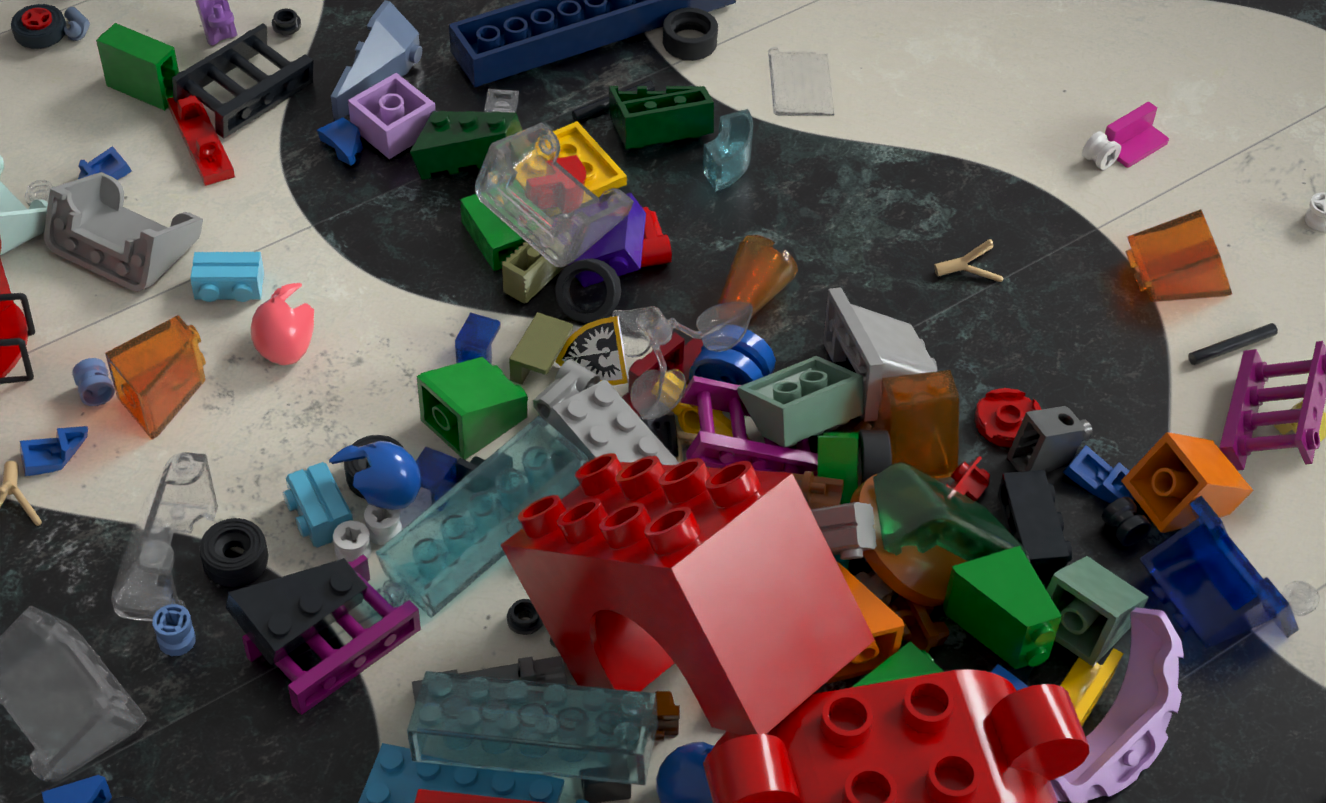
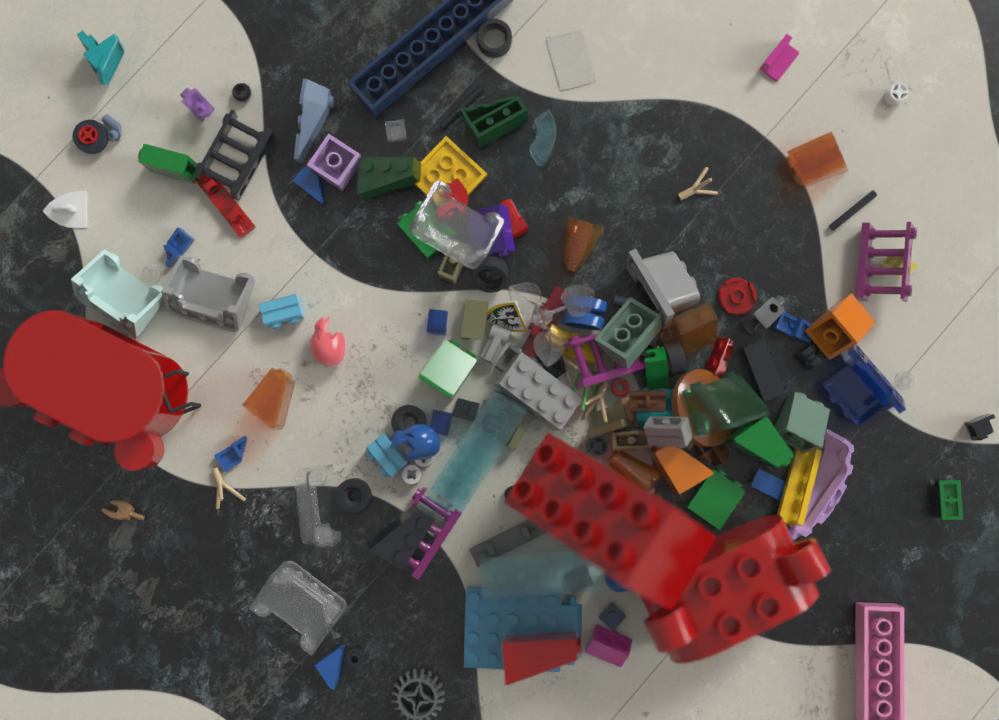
camera: 15 degrees left, 35 degrees up
(93, 382) = (236, 406): medium blue wheel -> none
(174, 629) = (343, 549): medium blue wheel -> none
(1101, 150) = (761, 77): white wheel -> none

